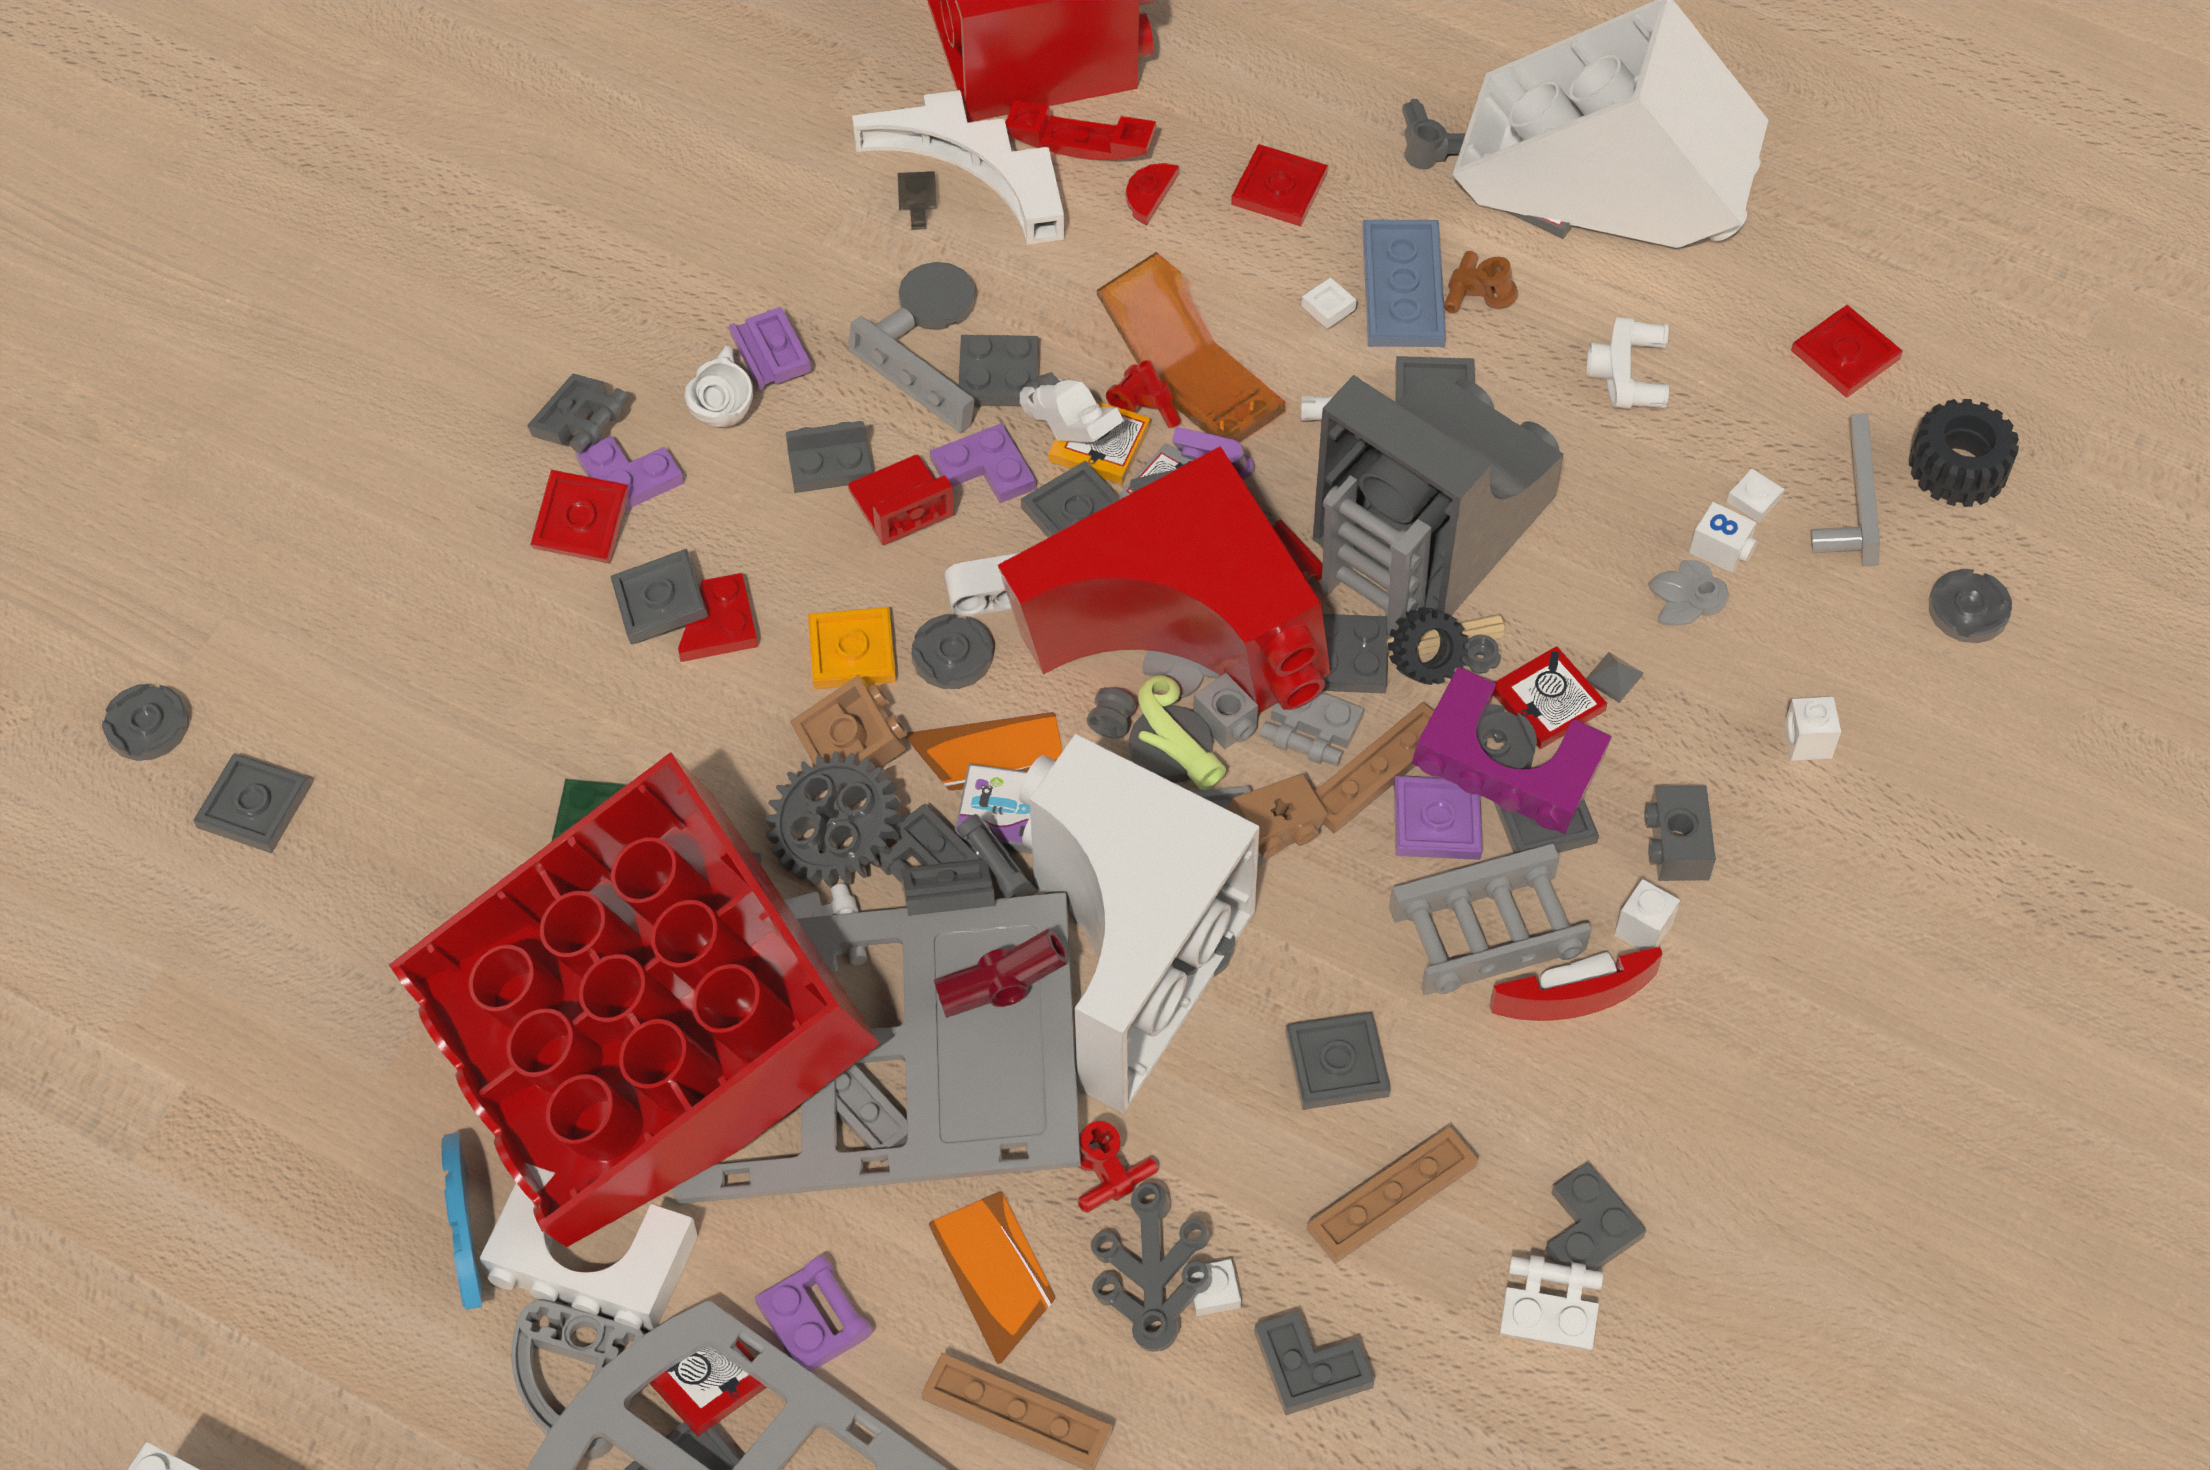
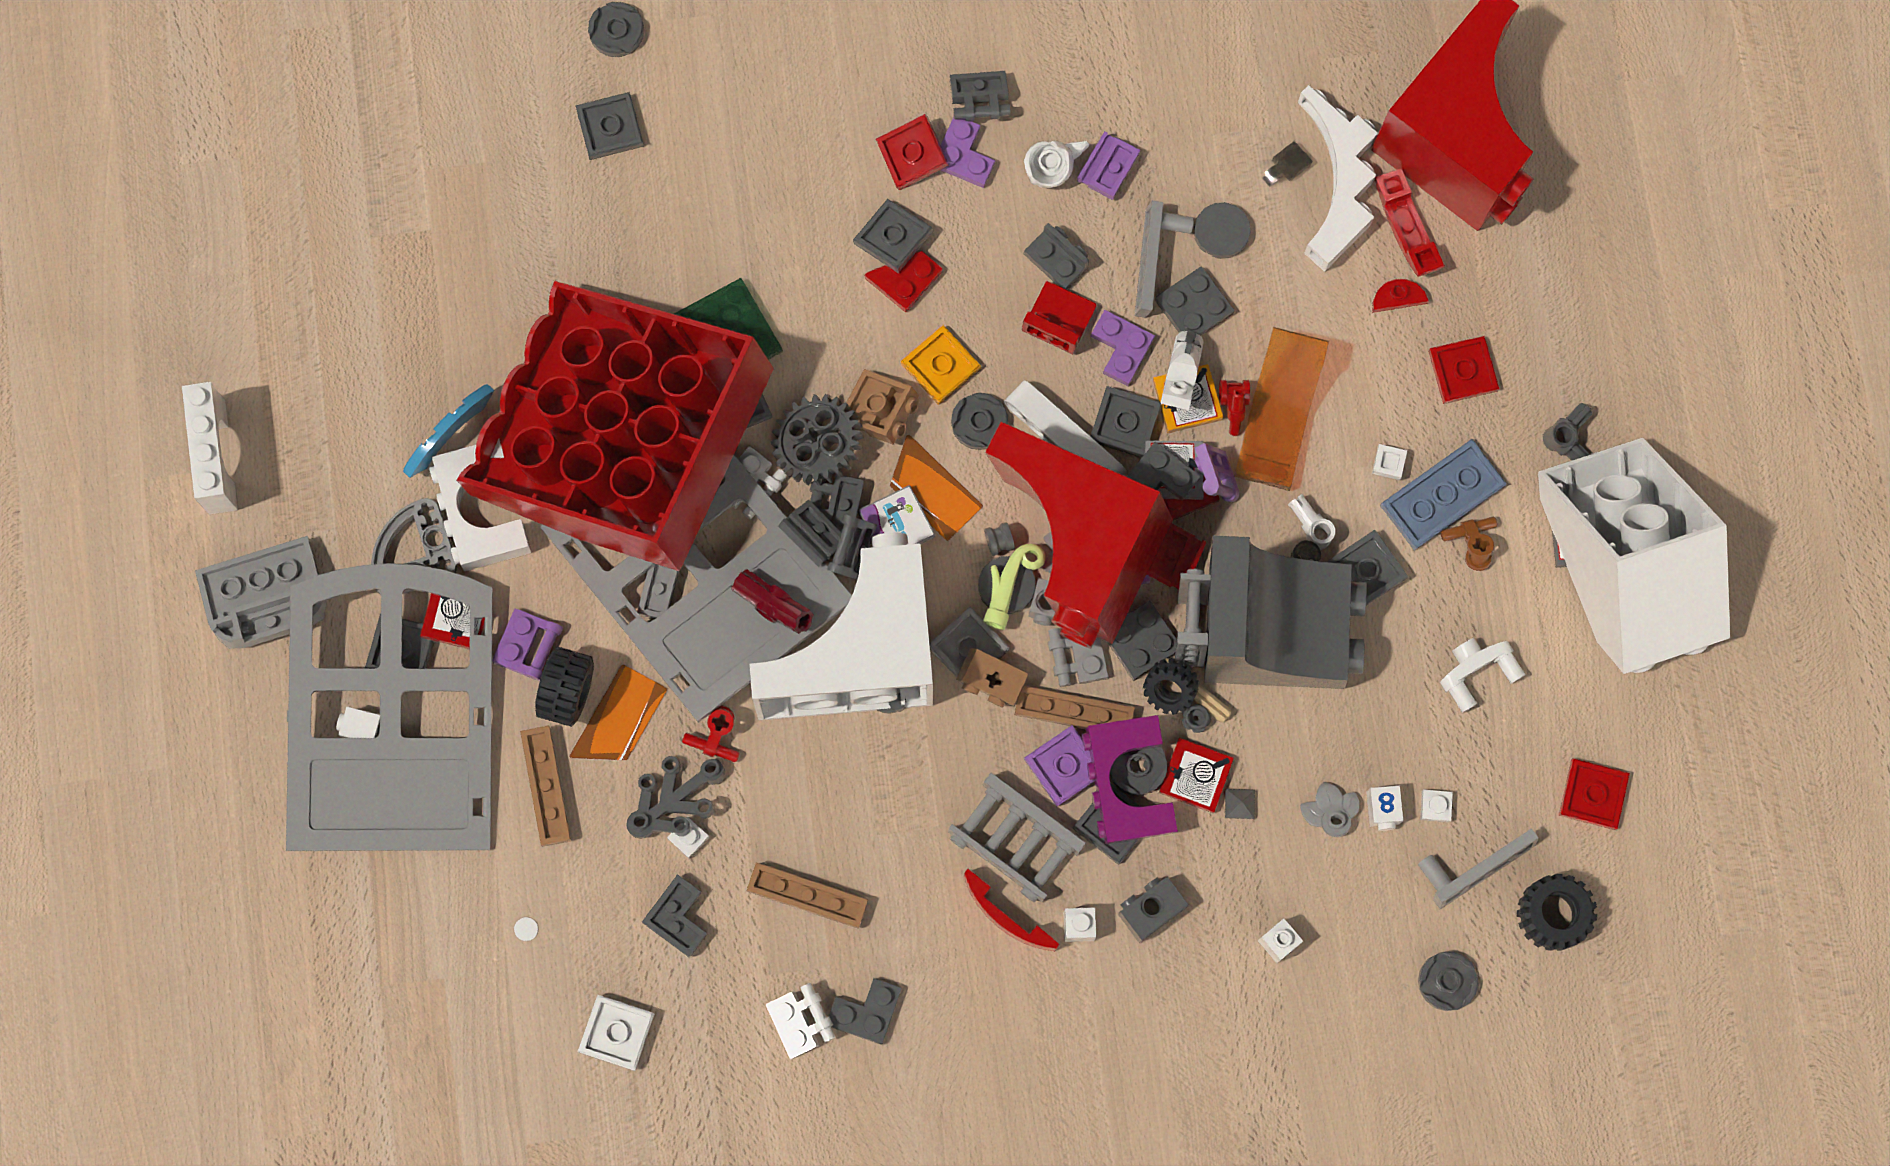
camera: 50 degrees right, 20 degrees up
(911, 1289) = (564, 686): none -> black tyre
(1337, 1061) = (870, 812): dark grey tile -> none
(1578, 971) = (1015, 909): white bar -> none

